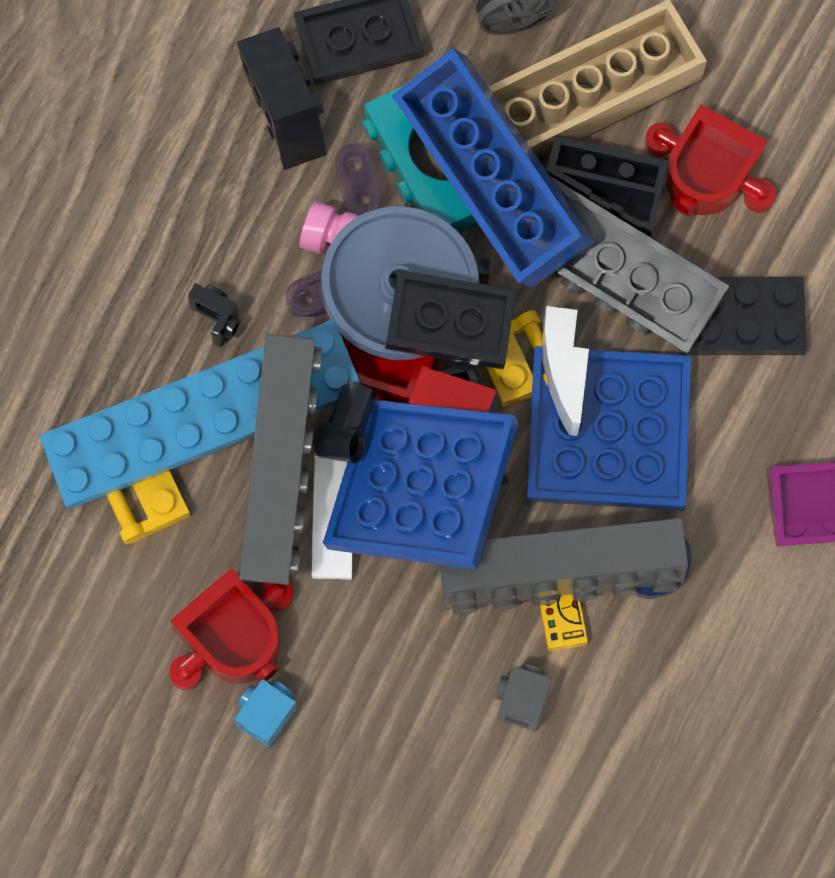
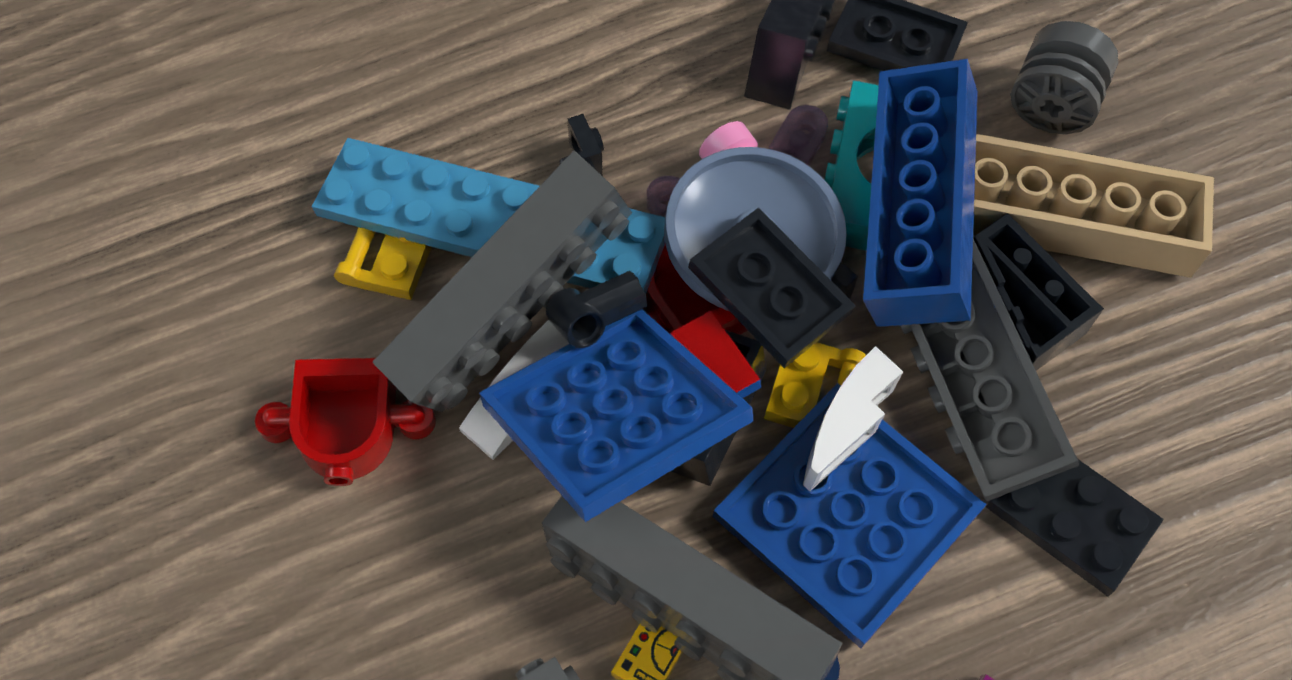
camera: 40 degrees right, 10 degrees down
(265, 711) = (301, 511): dark azure brick -> none
(711, 164) = (1147, 354): red piece -> none

